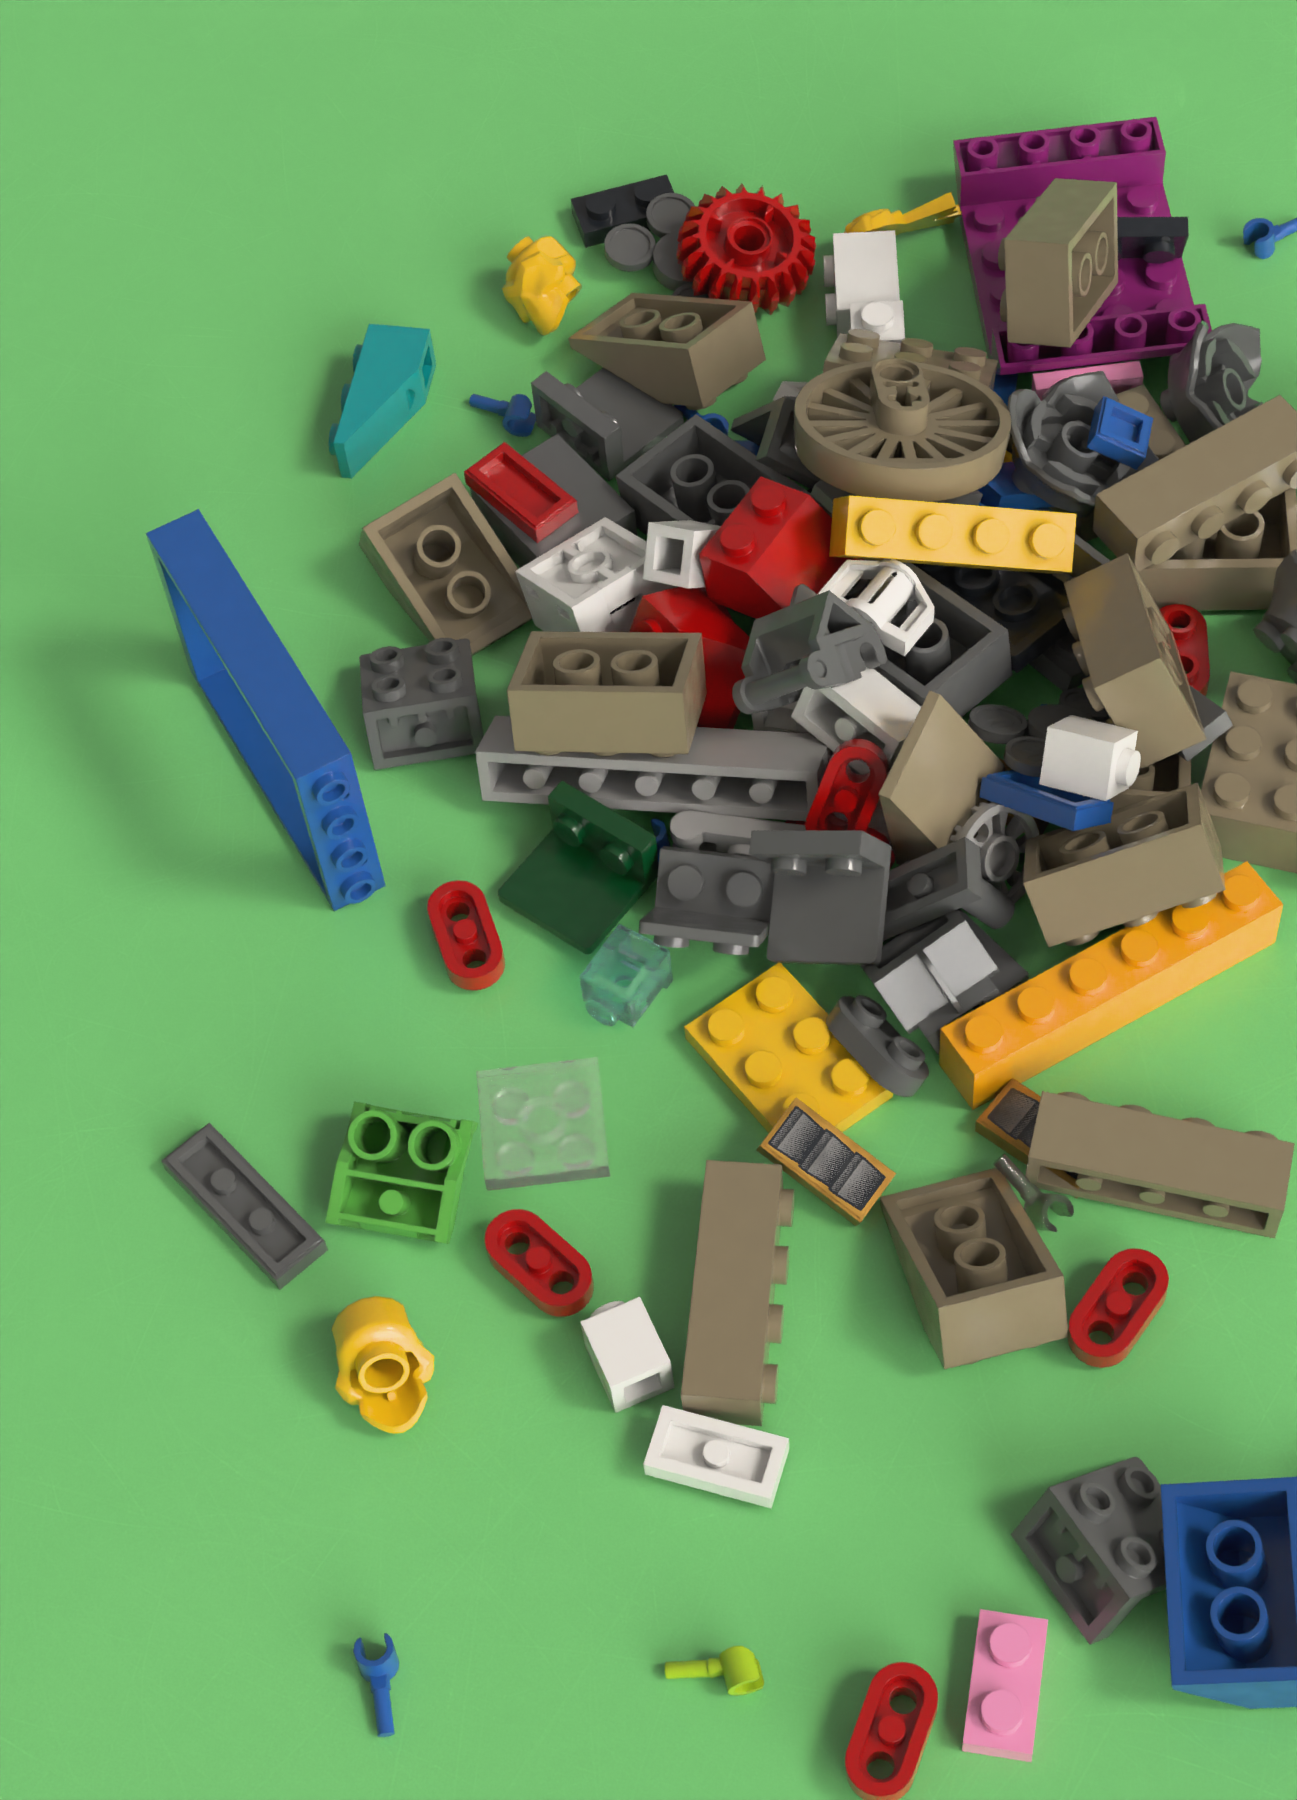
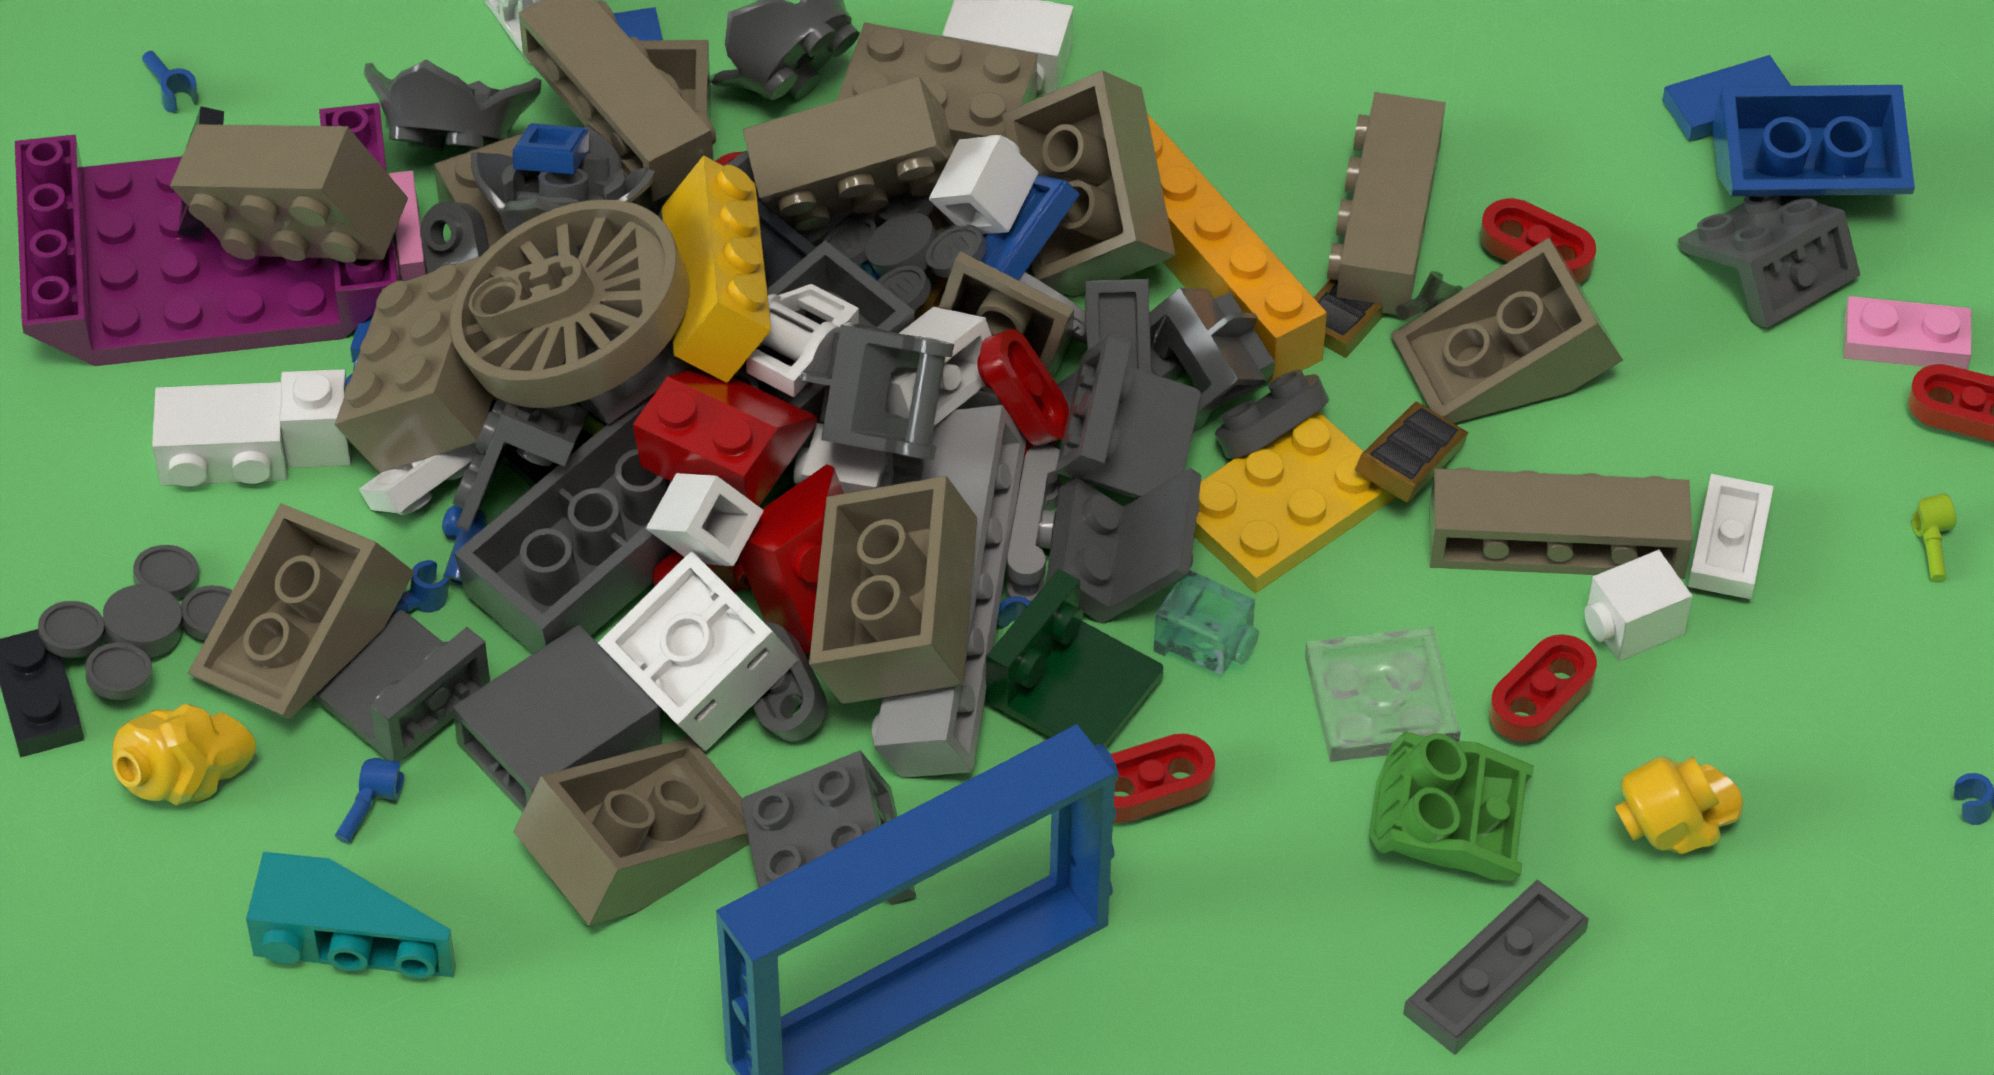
camera: 100 degrees left, 5 degrees down
(521, 492) = (552, 728): red tile -> none
(746, 248) = (158, 538): red gear -> none
(931, 214) = (128, 408): yellow piece -> none

